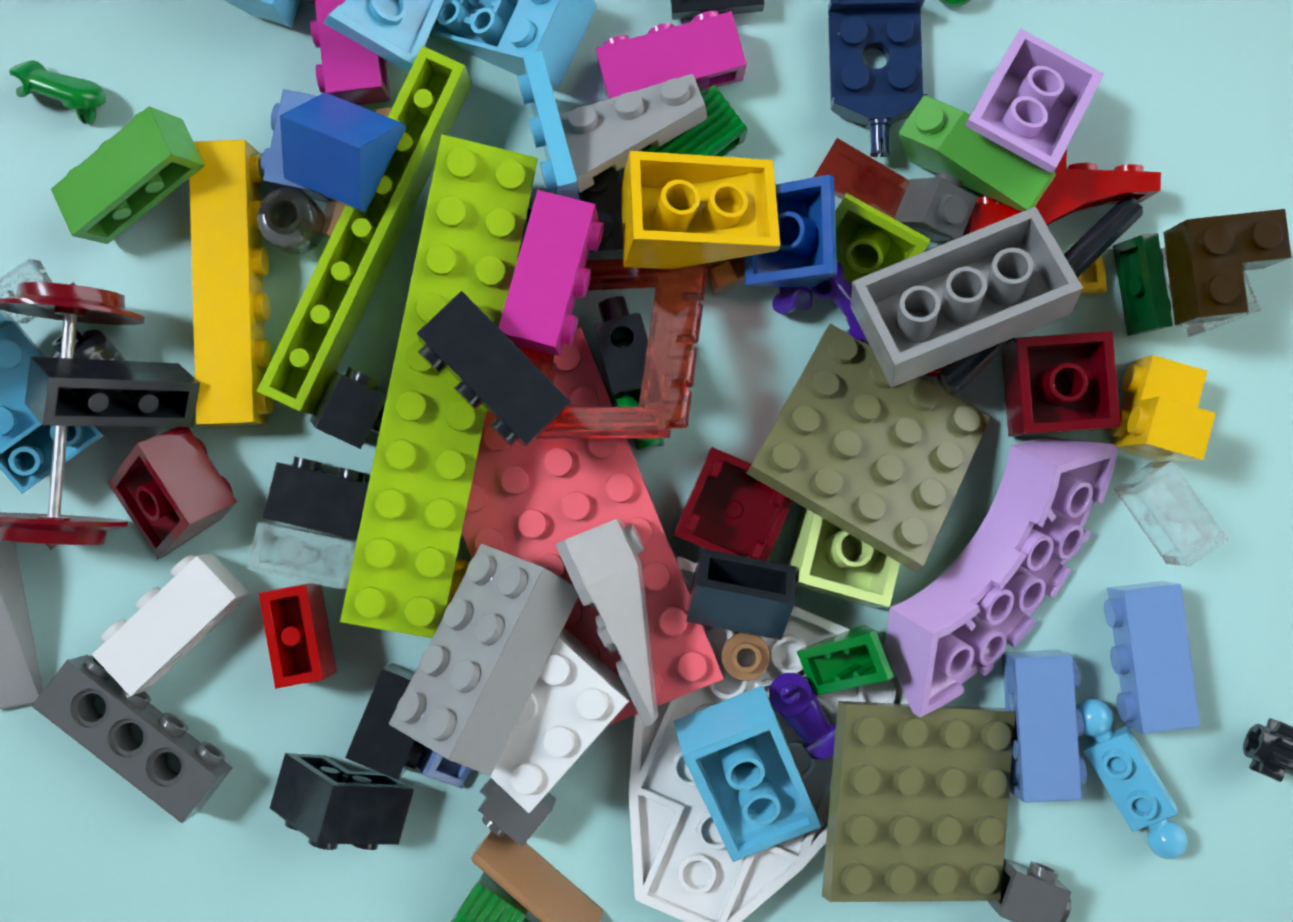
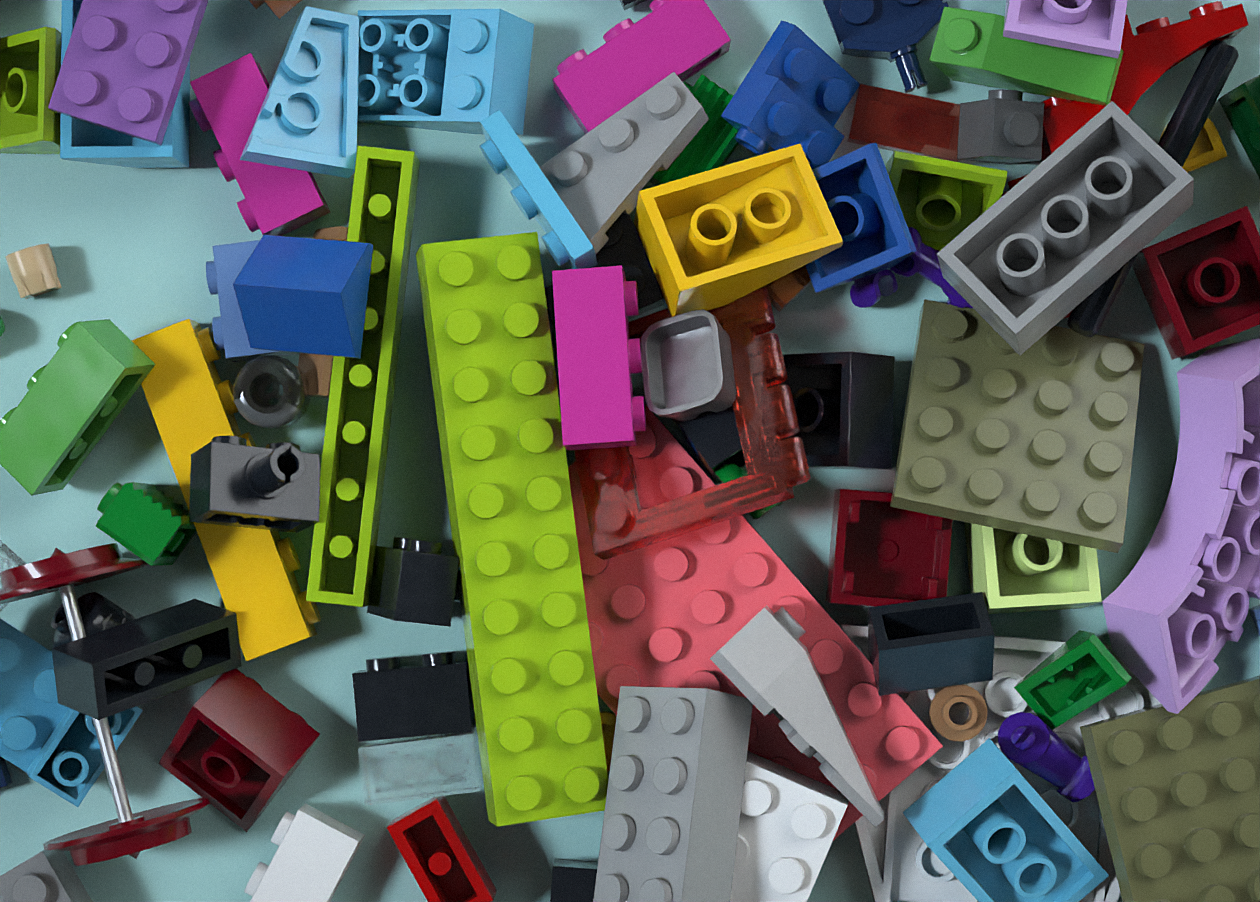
camera: 15 degrees left, 0 degrees up
(142, 65) = (33, 271): none -> tan hose
(153, 287) = (146, 522): none -> green brick
(246, 286) = (254, 485): none -> black brick
(491, 371) = (575, 493): black brick -> none
(621, 305) = (687, 366): none -> flat silver piece
(735, 385) = (843, 408): none -> black slope
(779, 124) = (791, 98): none -> blue plate

